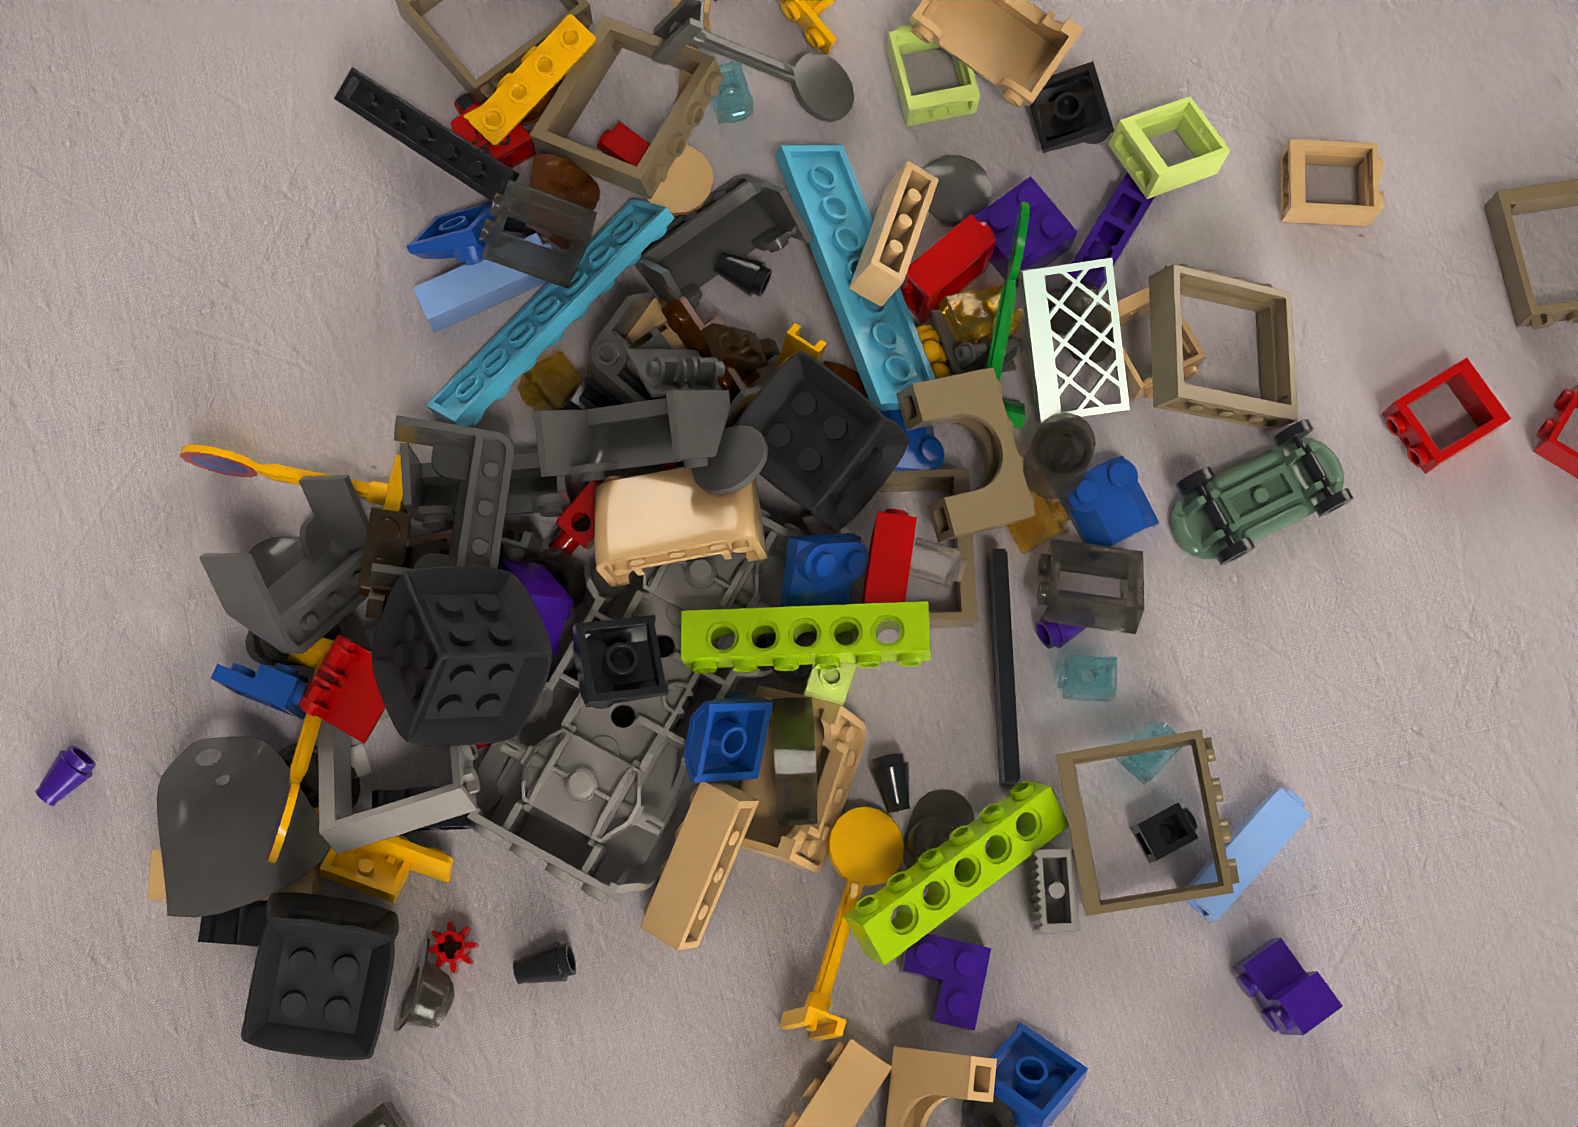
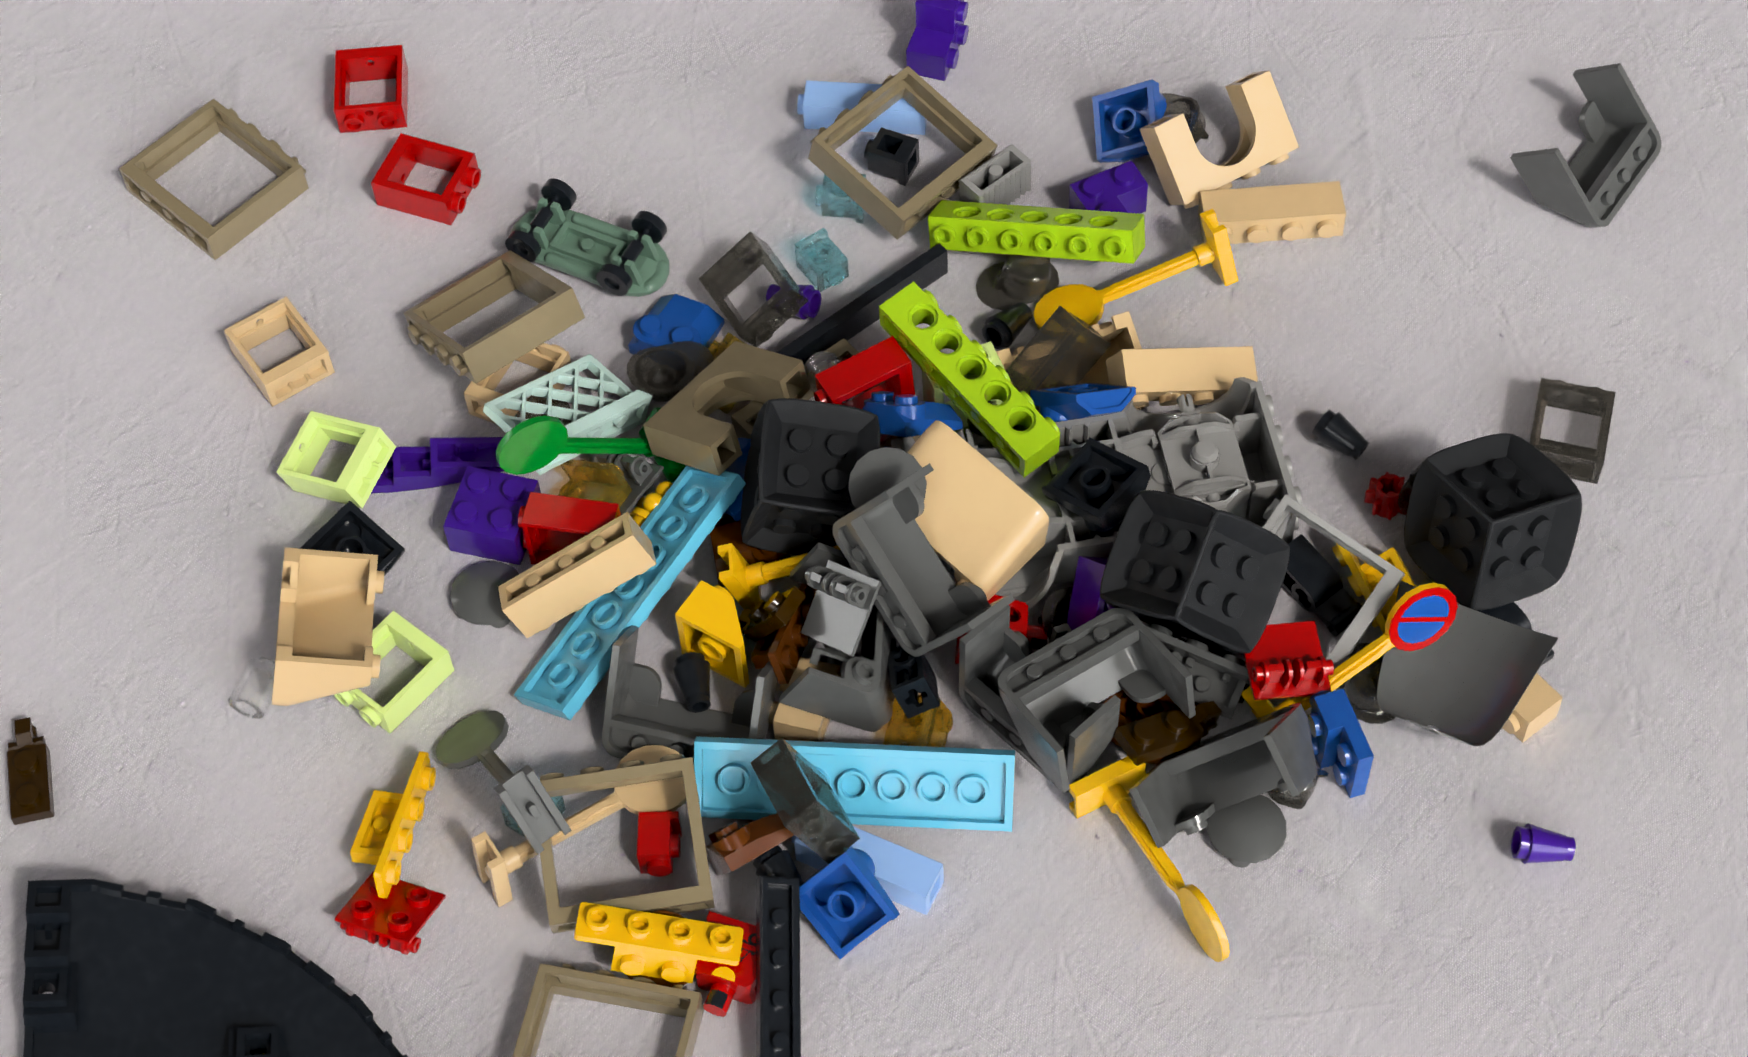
camera: 120 degrees left, 20 degrees down
(761, 304) = (711, 627): none -> yellow slope

